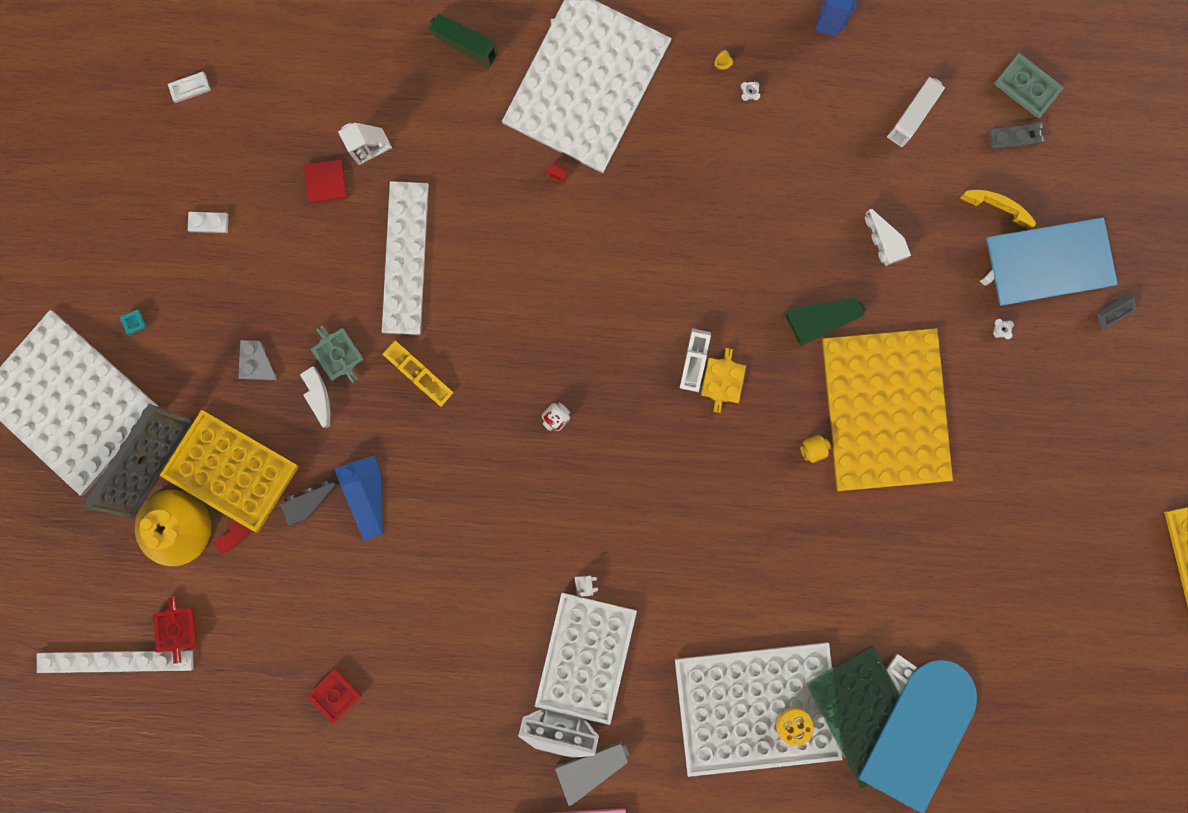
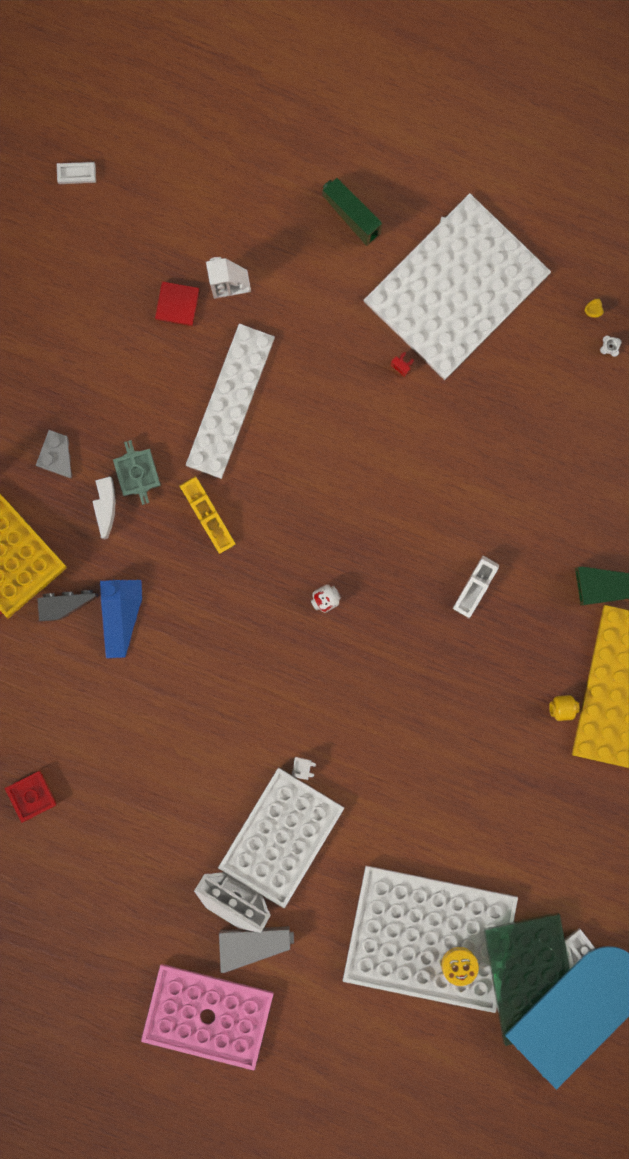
camera: 15 degrees right, 0 degrees up
(208, 222) = (53, 307): white plate -> none
(723, 380) = (496, 614): yellow plate -> none

